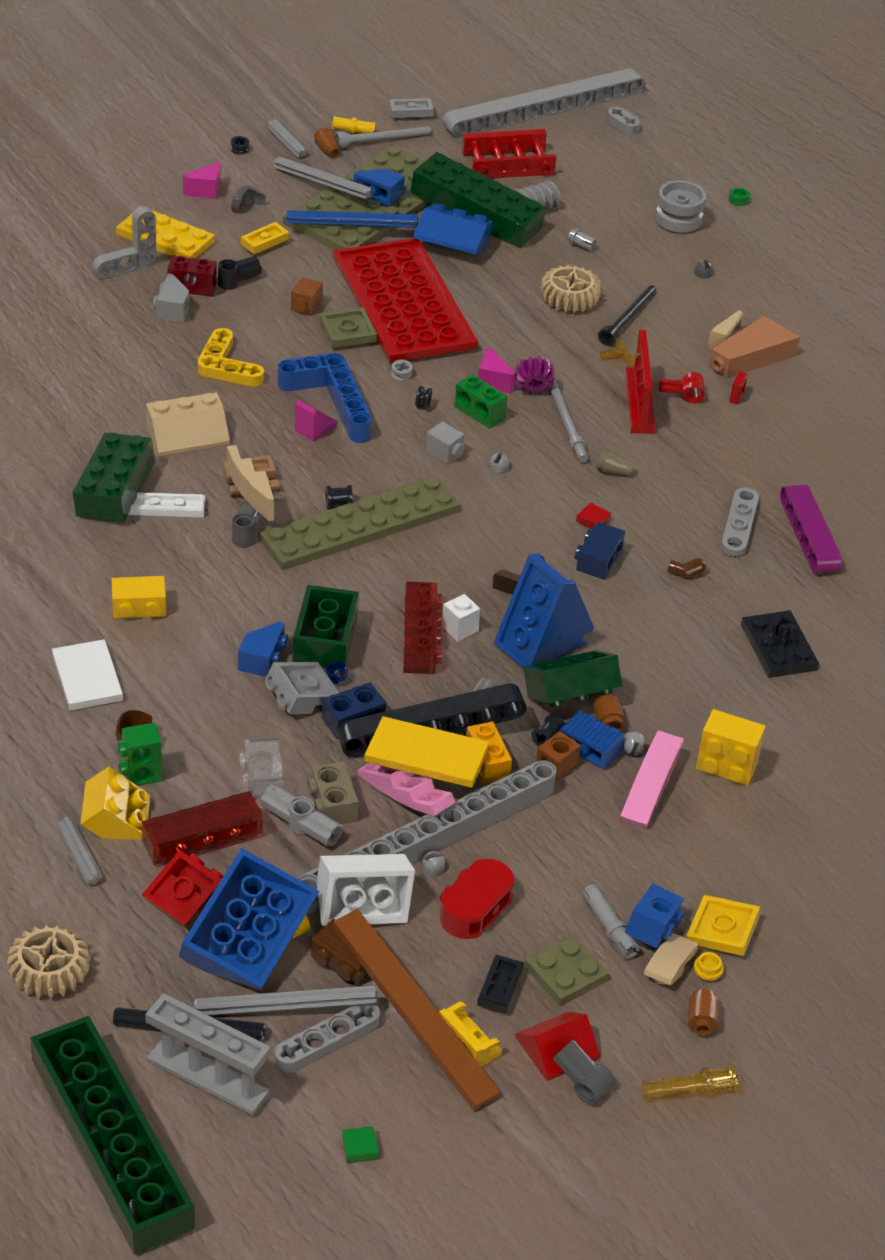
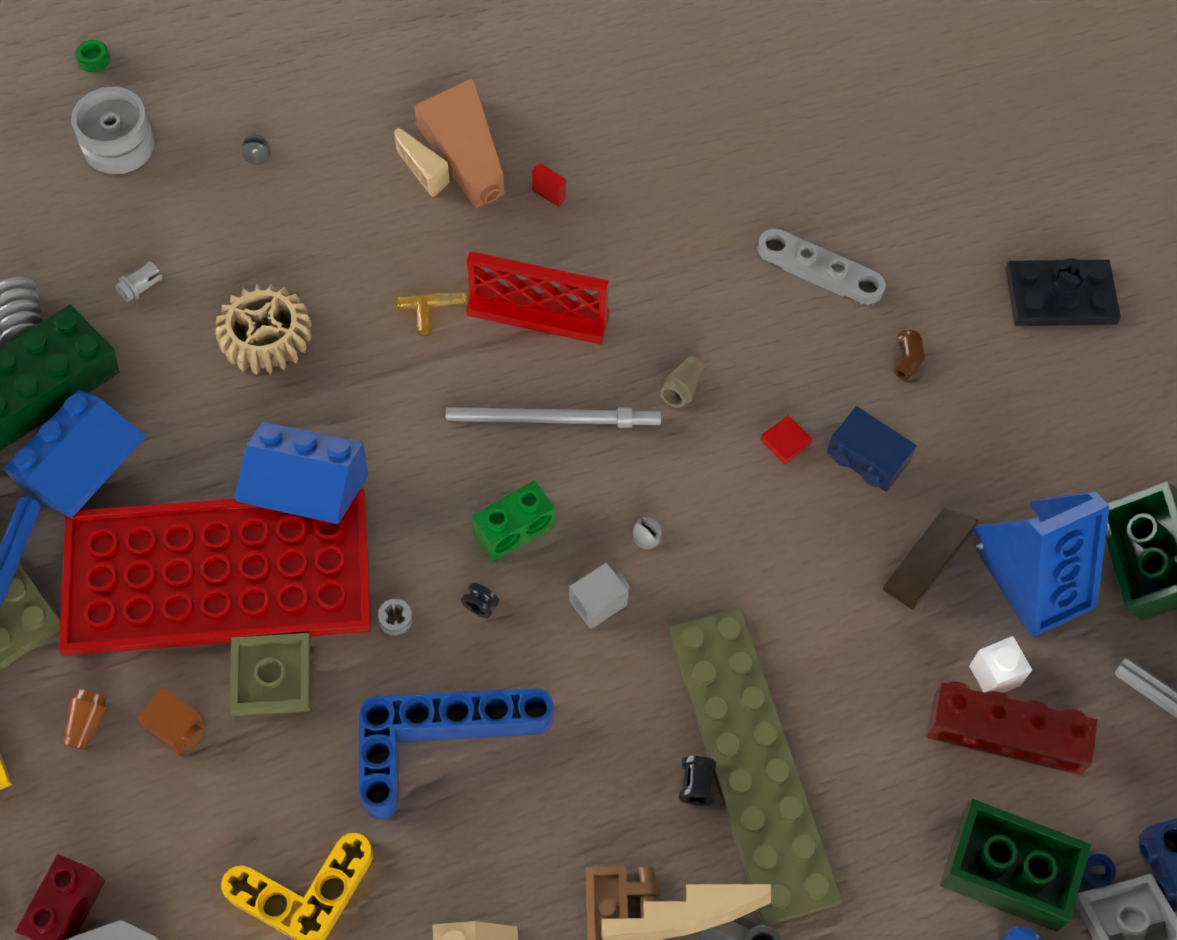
camera: 75 degrees left, 20 degrees up
(232, 271) = (65, 819): black piece -> none
(298, 267) = (83, 718): none -> dark orange cone
(311, 421) = (502, 777): dark pink slope -> none
(475, 310) = (301, 472): none -> blue slope
(496, 372) = (442, 485): dark pink slope -> none
(535, 374) = (476, 430): magenta gear -> none
(609, 333) = (382, 308): black piece -> none
(690, 387) = (533, 242): red axle -> none
(810, 529) = (854, 190): magenta beam -> none

